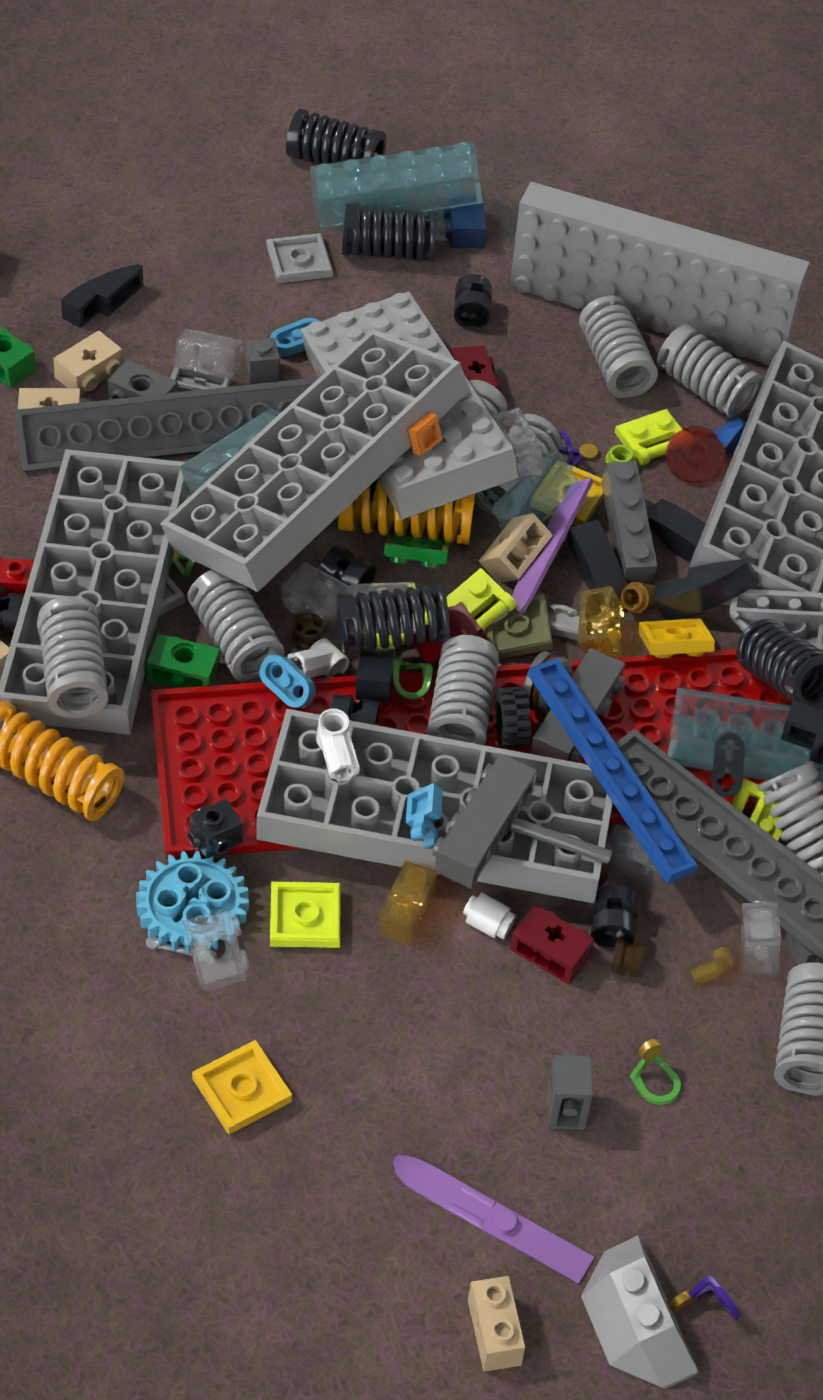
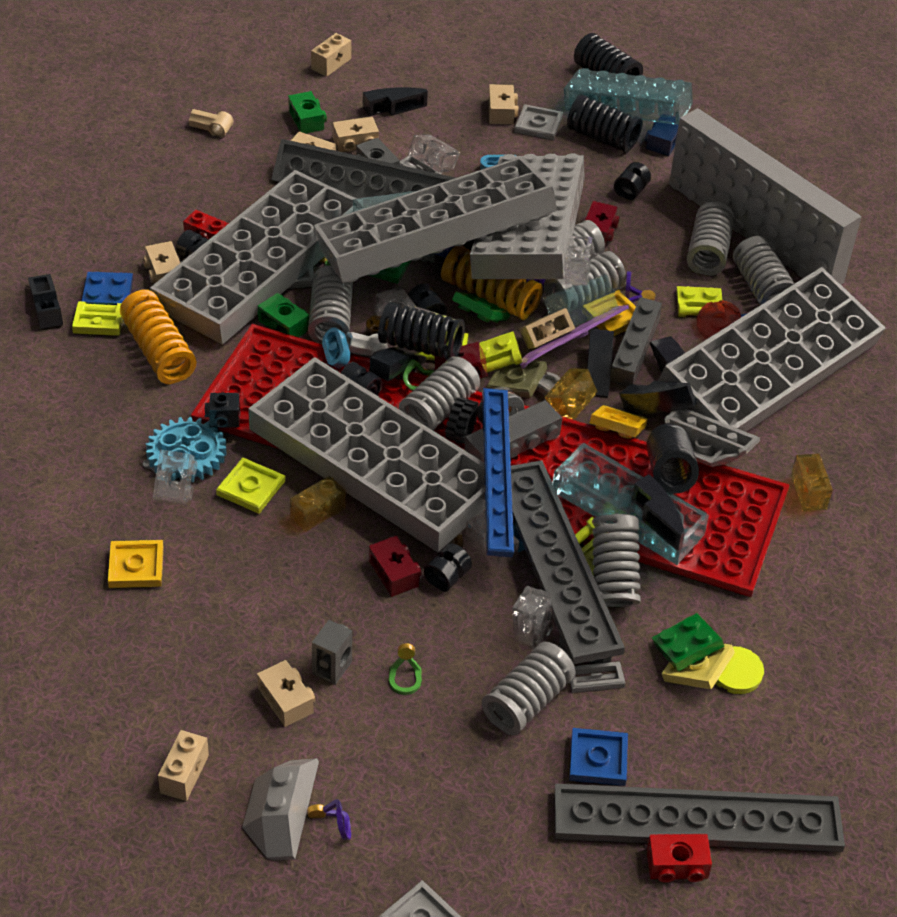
camera: 30 degrees right, 5 degrees down
(72, 657) = (202, 278): light grey piece -> none
(241, 250) = (502, 104): none -> tan brick
(262, 361) = (465, 164): dark grey brick -> none
(337, 745) = (325, 385): white piece -> none
(422, 809) = (350, 444): dark azure plate -> none
(425, 434) = (509, 226): orange tile -> none
(484, 820) = (386, 465): dark grey brick -> none
(489, 916) = (365, 532): white brick -> none
(493, 1218) = (236, 709): medium lavender piece -> none
(553, 1185) = (286, 692): none -> tan brick
(561, 840) = (430, 498): dark grey bar -> none
(619, 453) = (668, 306): lime plate -> none
(627, 957) = (438, 595): dark brown wheel -> none
(638, 597) = (610, 388): pearl gold cone -> none
(721, 963) = (503, 626): clear yellow arm -> none
(735, 764) = (578, 499): black beam -> none

